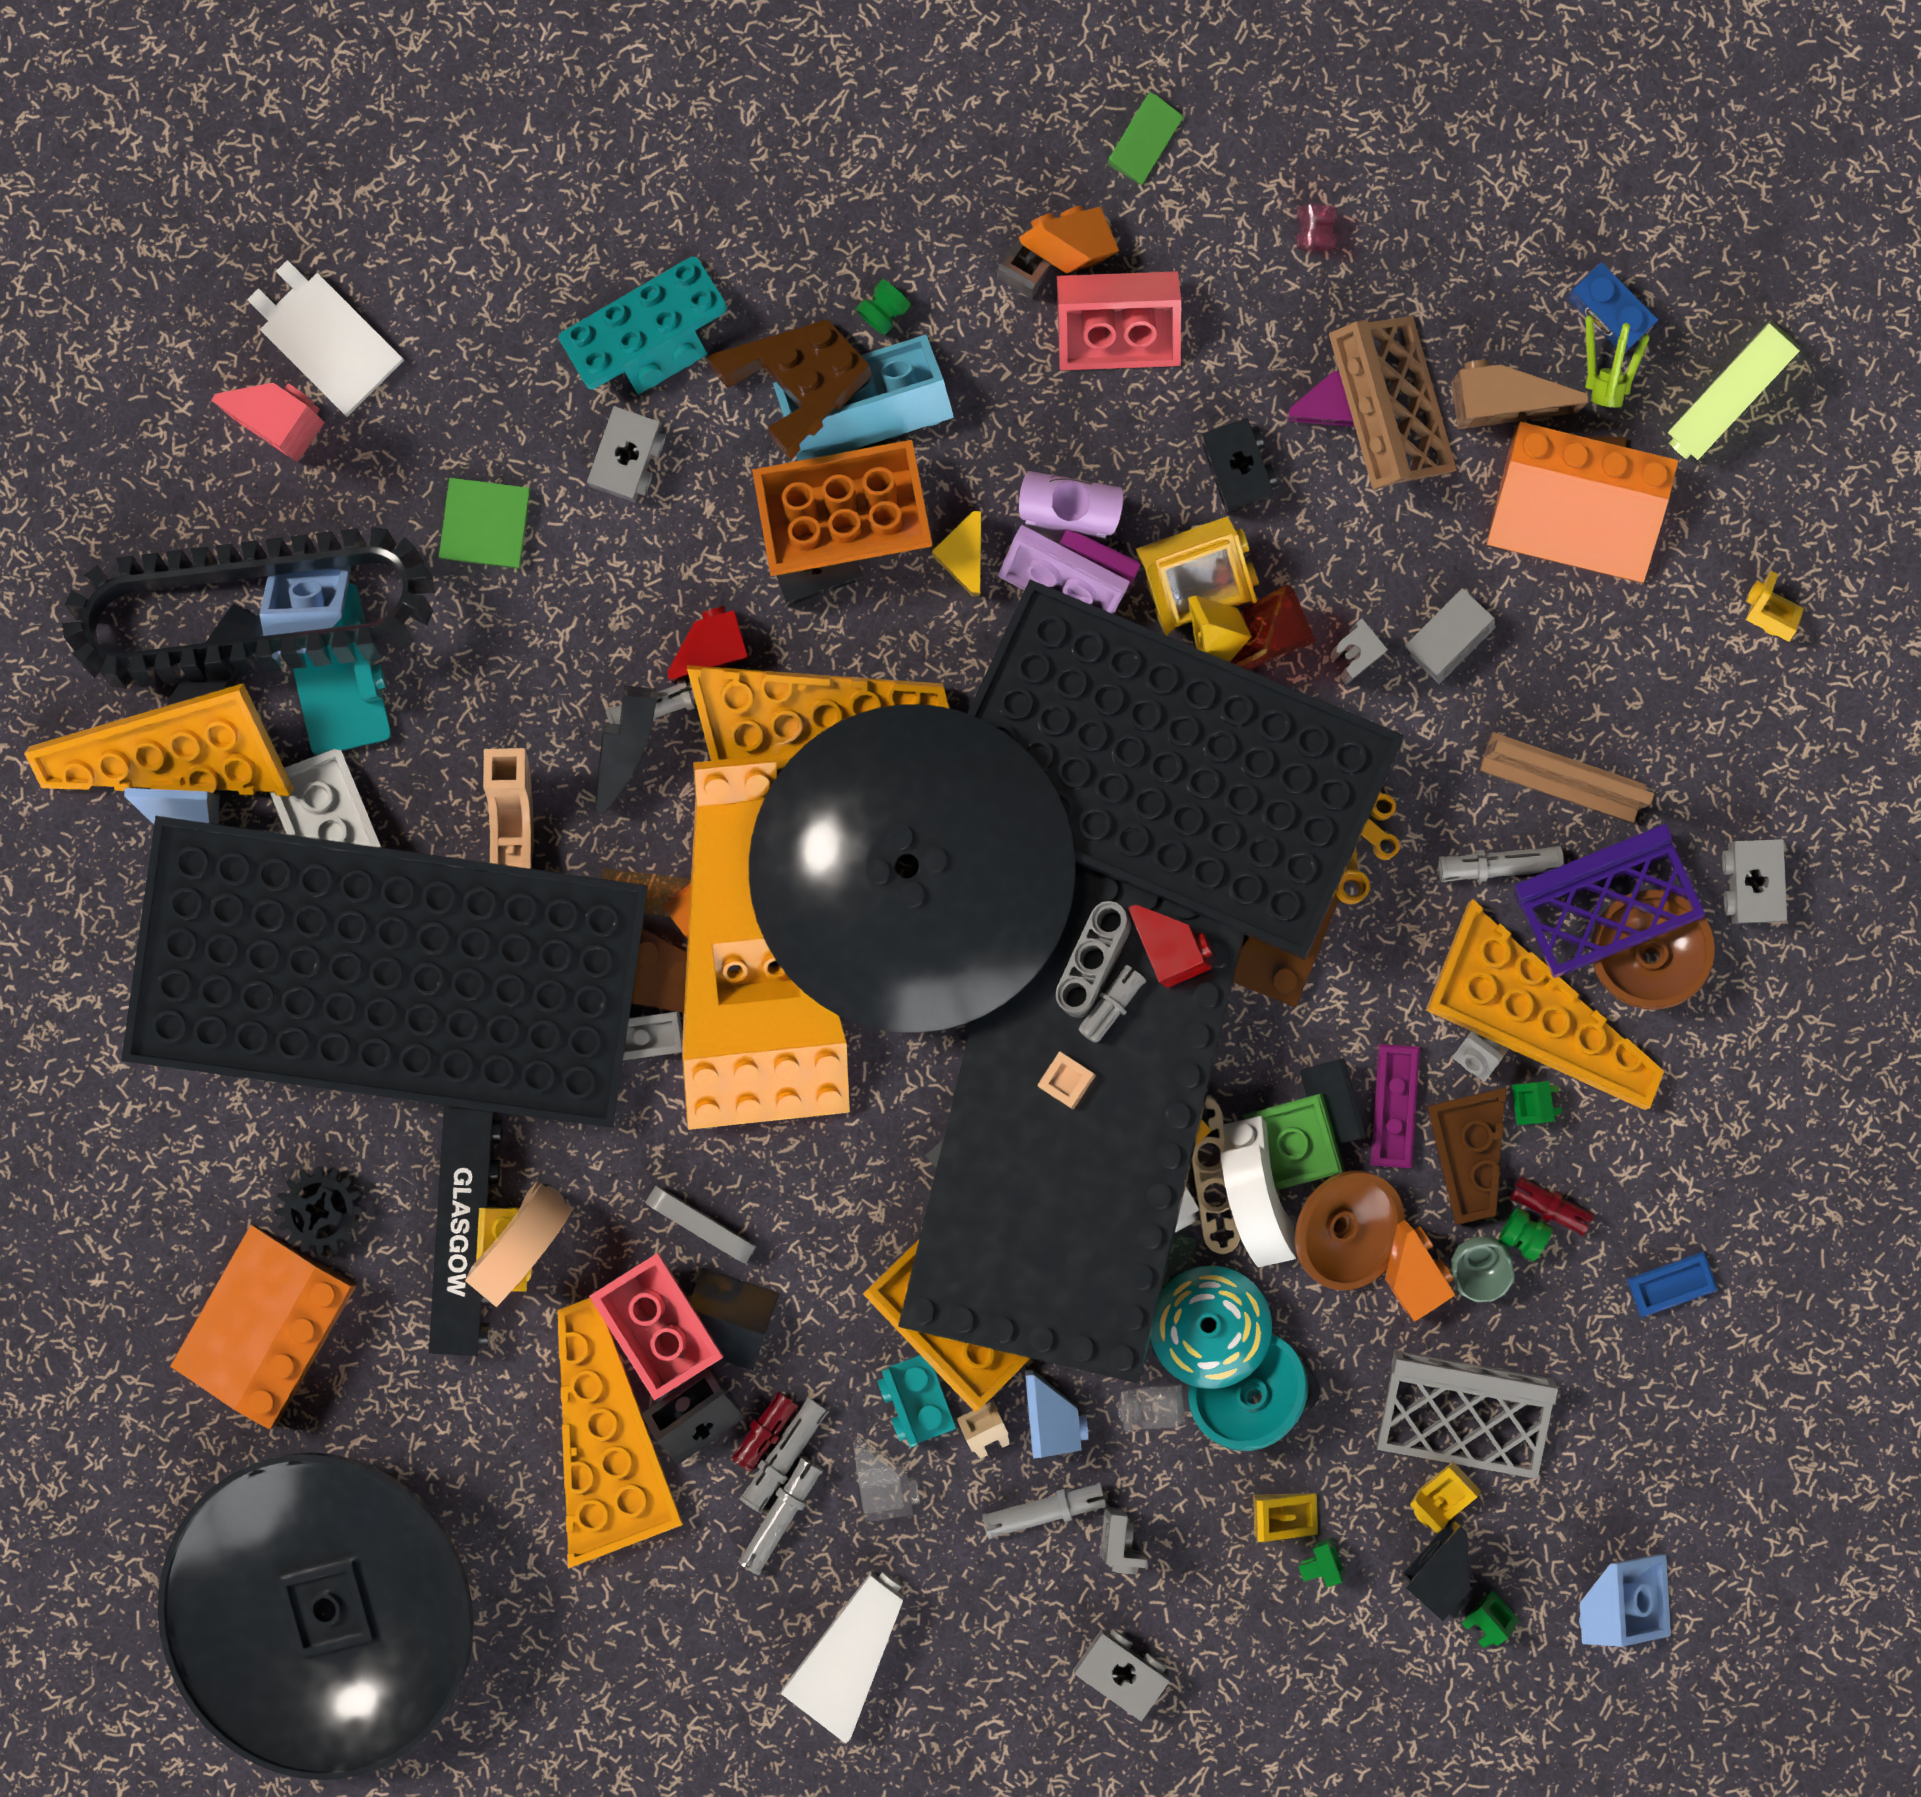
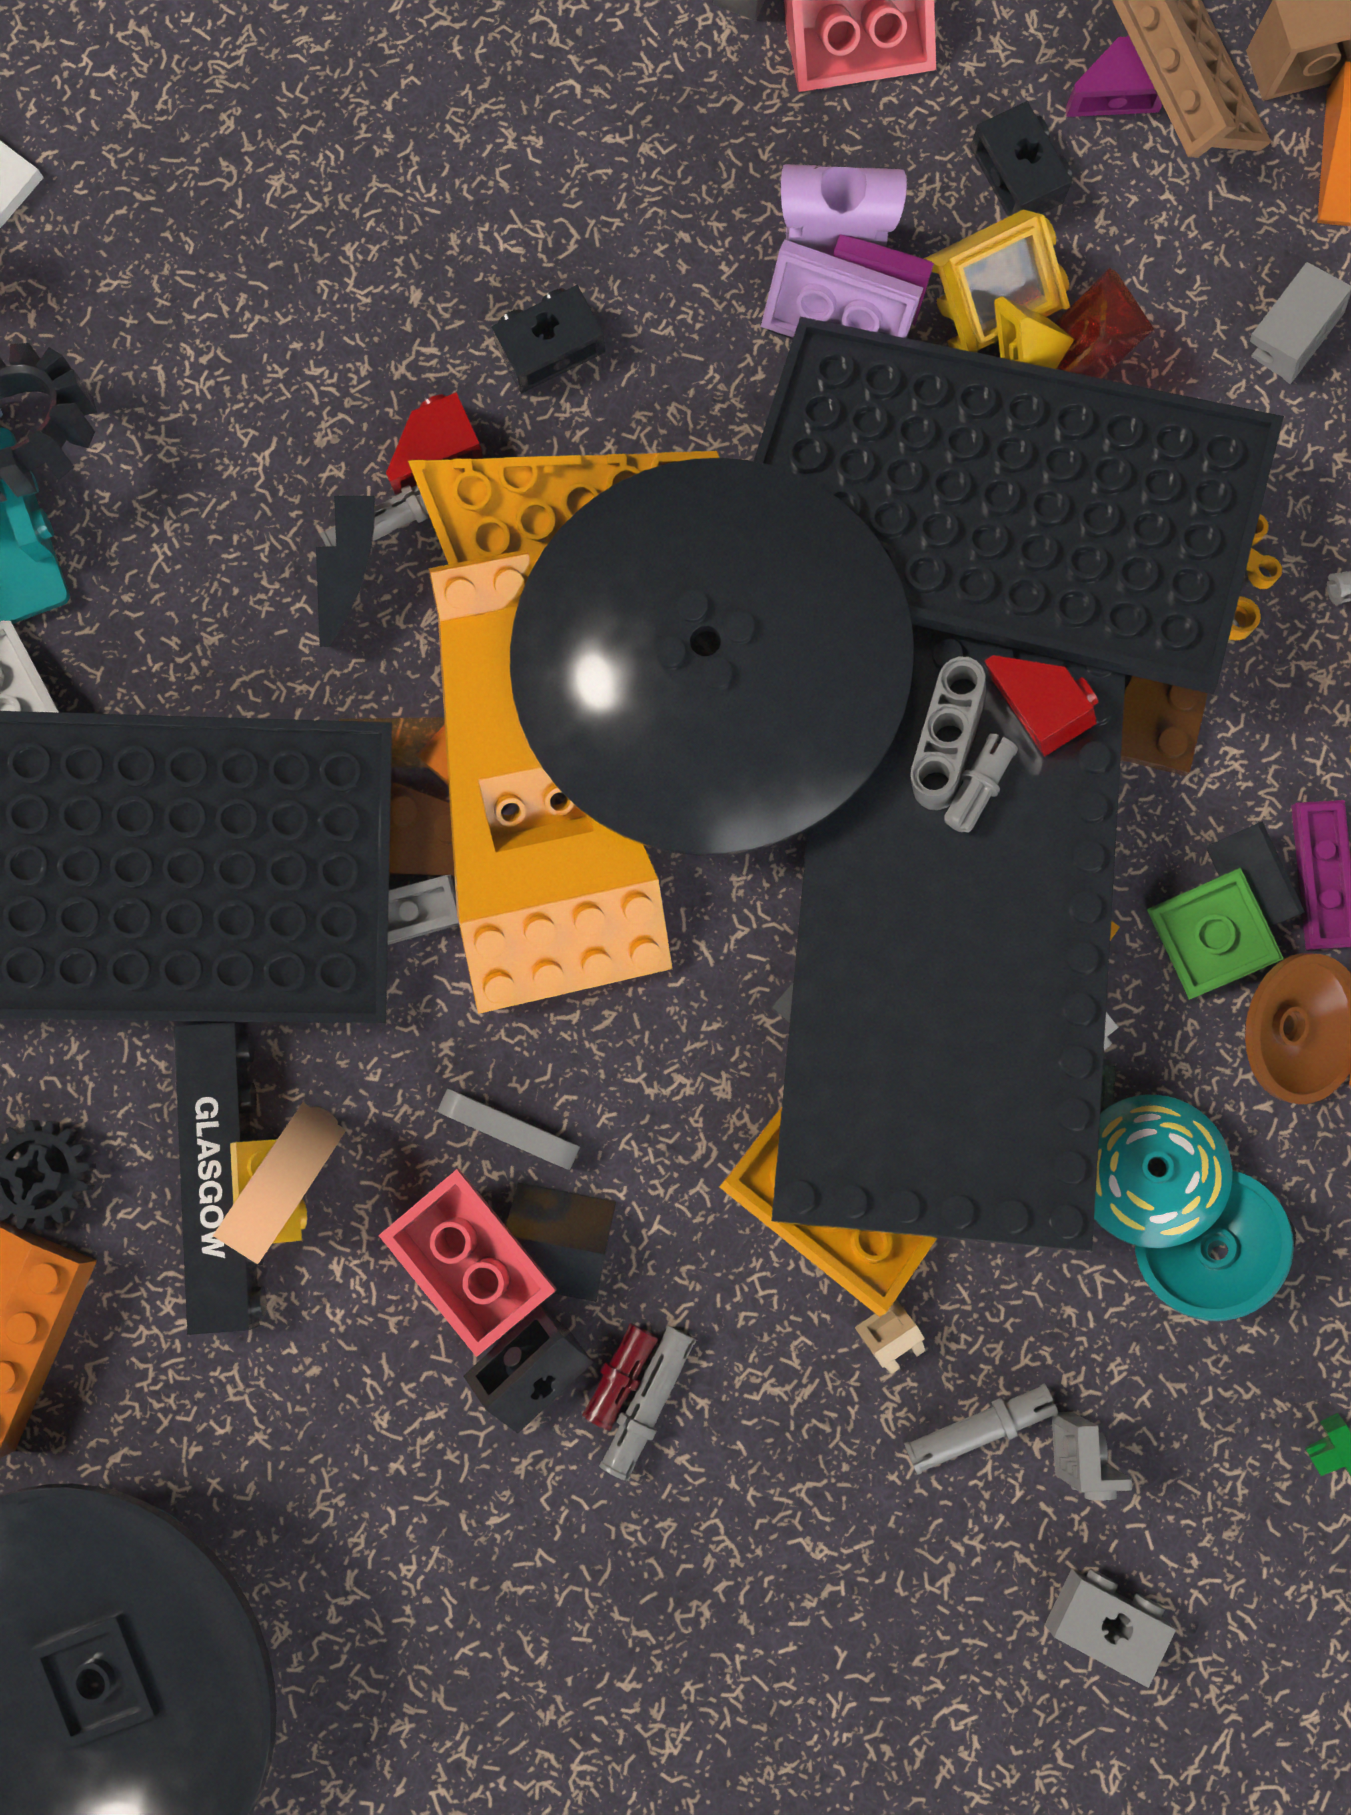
camera: 10 degrees left, 5 degrees down
(484, 523) = (154, 343): bright green tile -> none
(510, 806) = (215, 645): light nougat arch -> none
(609, 1460) = (431, 1438): light orange wing -> none
(622, 432) = (309, 240): light grey brick -> none
(646, 330) = (320, 104): teal bracket -> none
(789, 1501) = (661, 1462): light grey pin -> none
(812, 368) = (504, 112): reddish brown wing -> none
(841, 508) = (568, 249): orange slope -> none
(843, 1663) = (758, 1660): white slope -> none
(883, 1484) = (777, 1424): clear slope -> none
(886, 304) = (586, 43): green wheel -> none
(898, 398) = (580, 148): medium azure slope -> none
(917, 1400) = (803, 1310): teal bracket -> none
(962, 553) = (714, 302): yellow slope -> none
(1052, 1419) = (975, 1314): light blue slope -> none
(1066, 1080) = (937, 885): light nougat tile -> none
(1151, 1408) = (1095, 1281): clear bracket -> none
(1208, 1175) = (1133, 984): tan beam -> none
(1252, 1193) = (1184, 997): white arch -> none
(1284, 1516) = (1276, 1396): yellow slope -> none
(1362, 646) = (1202, 341): light grey hinge -> none

